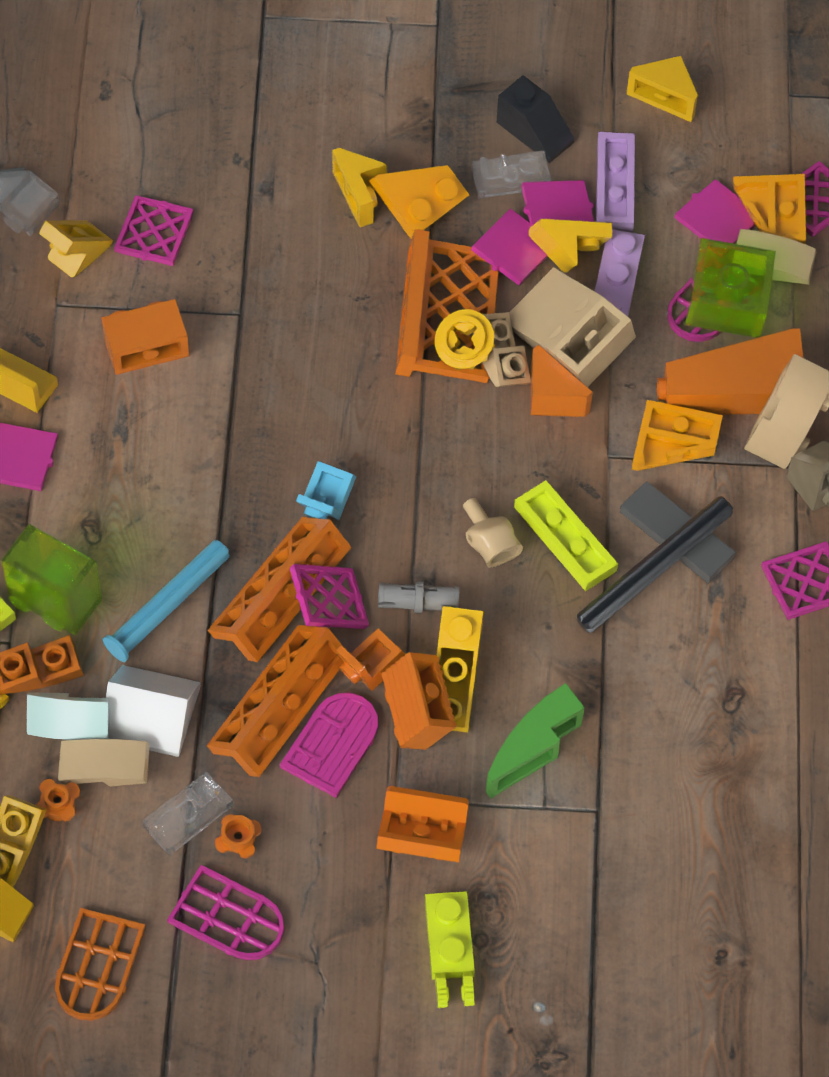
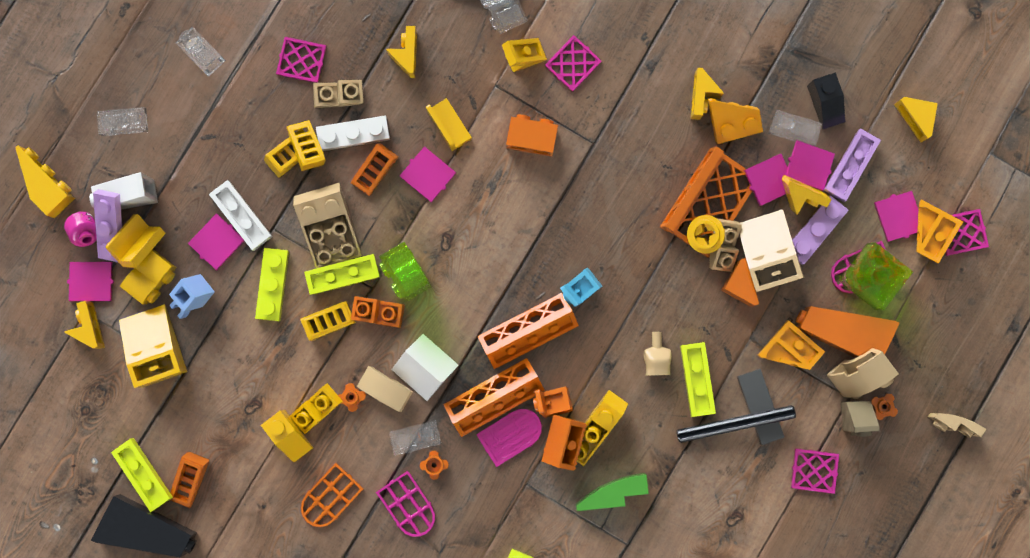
camera: 30 degrees right, 25 degrees up
(67, 717) = (381, 359): light aqua slope -> none
(166, 600) = (465, 307): medium azure axle -> none
(298, 571) = (564, 356): dark pink window -> none
(417, 596) = (598, 375): light grey pin -> none
(423, 824) = (530, 512): orange bracket -> none
(792, 259) = (923, 269): tan slope -> none

